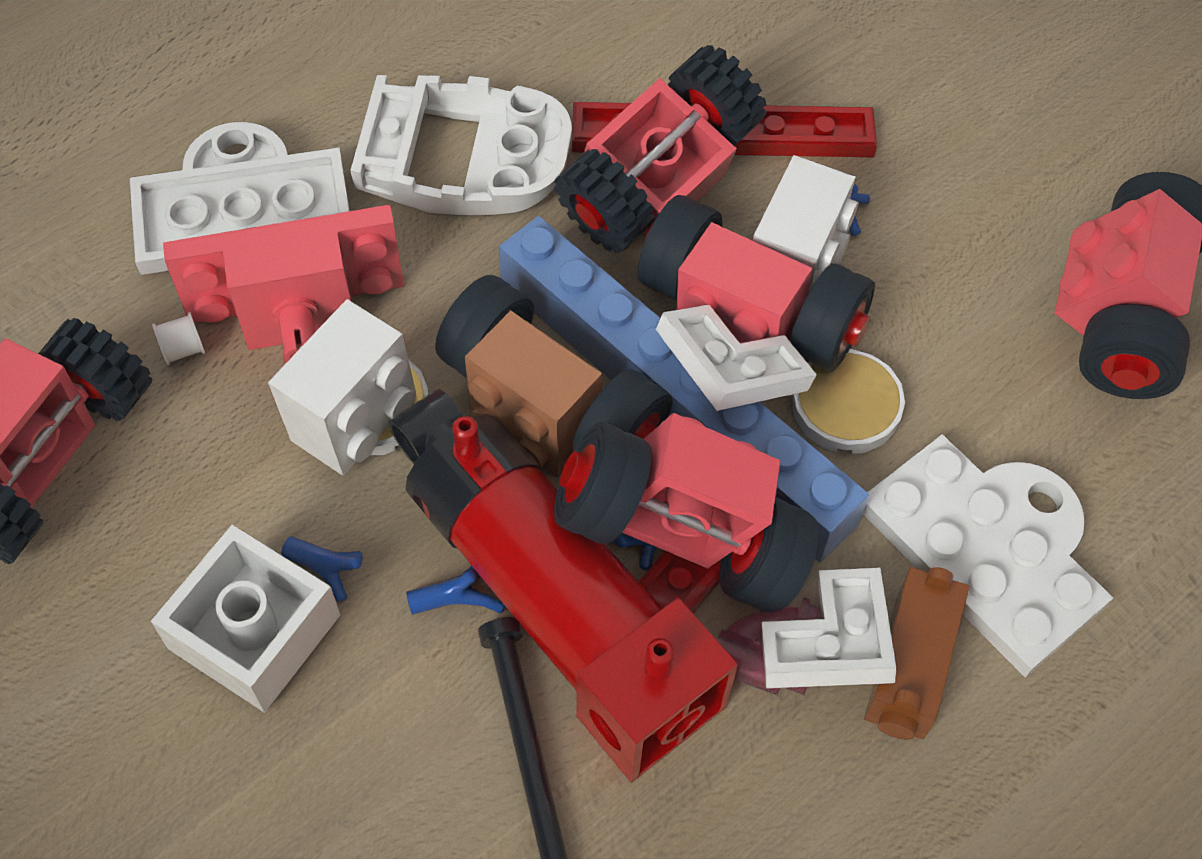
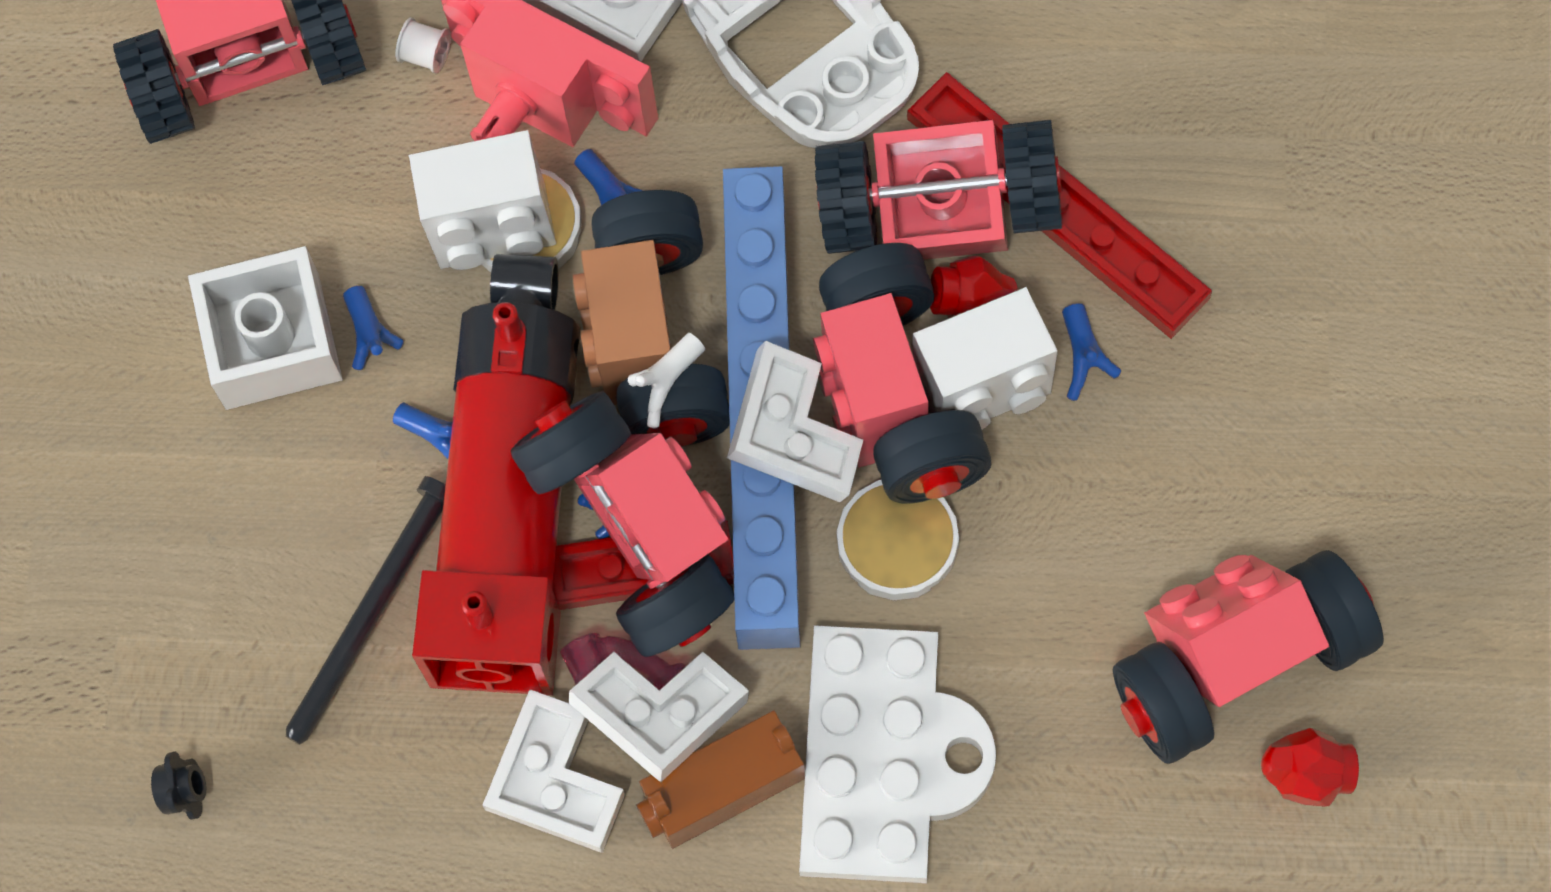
camera: 50 degrees right, 10 degrees up
(417, 334) = (600, 177): none -> blue bar
(614, 389) = (665, 372): none -> white bar
(739, 205) = (967, 286): none -> red rock
(795, 777) = (536, 781): none -> white plate

